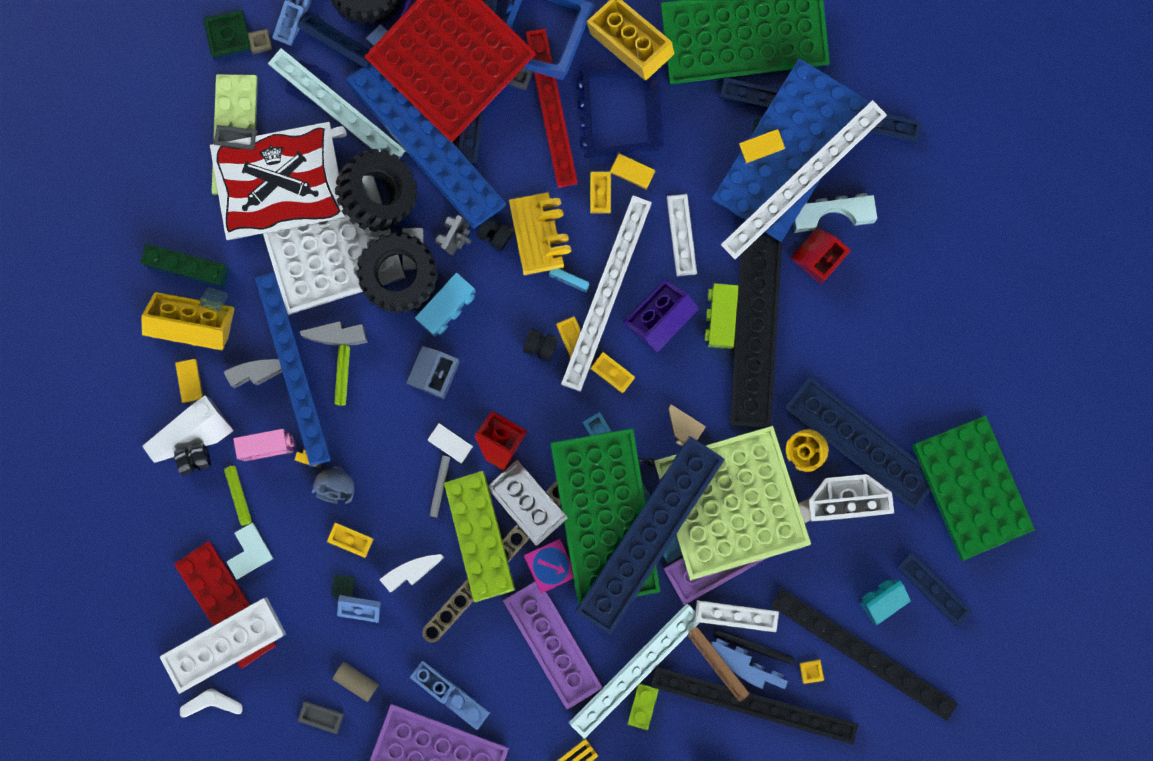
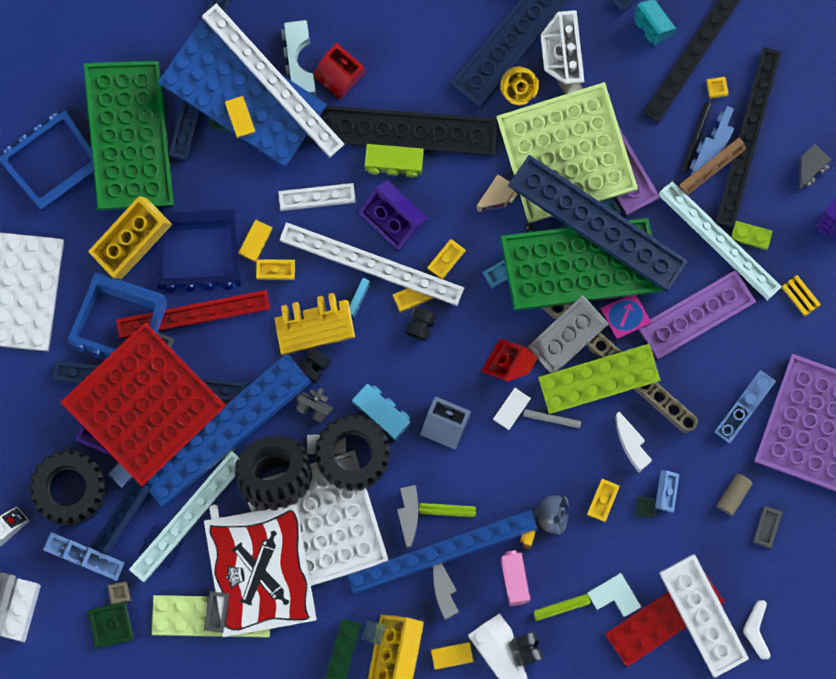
camera: 85 degrees left, 5 degrees down
(736, 616) = (669, 151): white tile -> none

